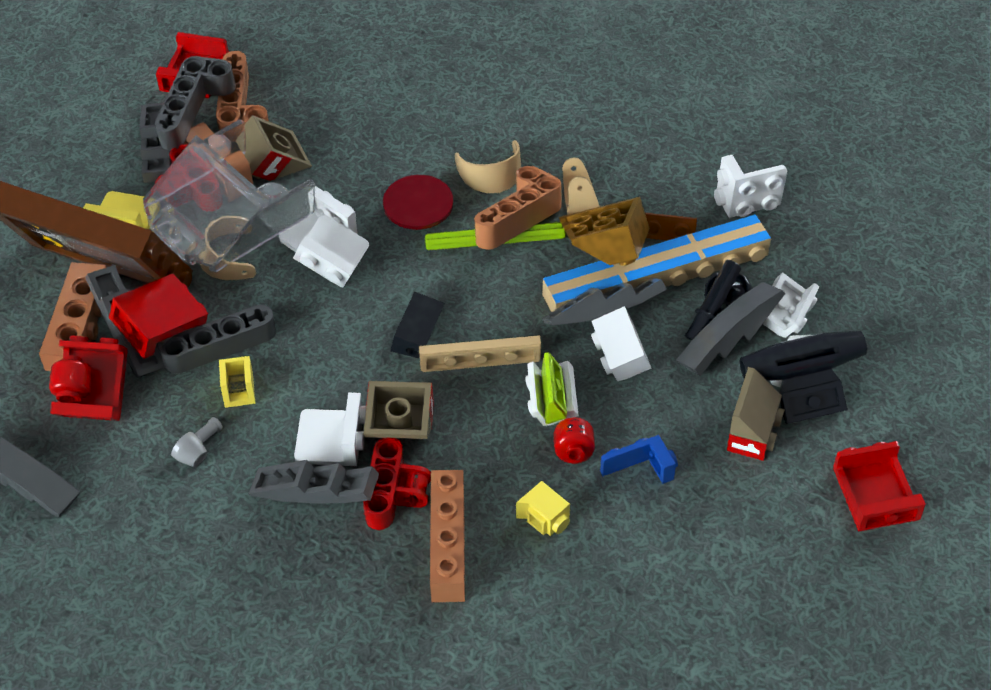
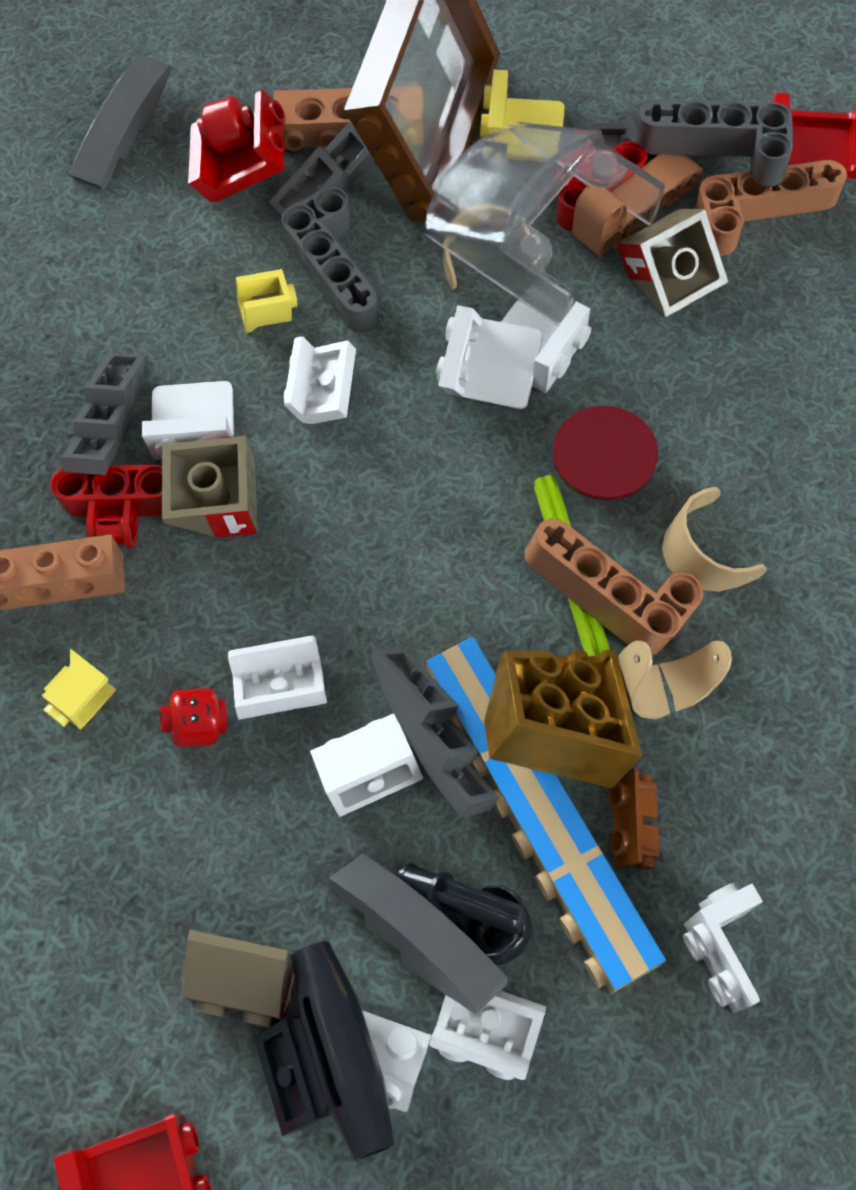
camera: 85 degrees right, 15 degrees up
(156, 313) = (332, 183): red panel -> none
(190, 446) = (162, 277): light grey bar -> none
(319, 350) = (319, 381): none -> white bracket
(416, 324) = (379, 487): black hinge -> none
(480, 353) = (337, 577): tan tile -> none
(553, 390) = (264, 673): lime slope -> none
(644, 449) = (167, 843): blue bracket -> none

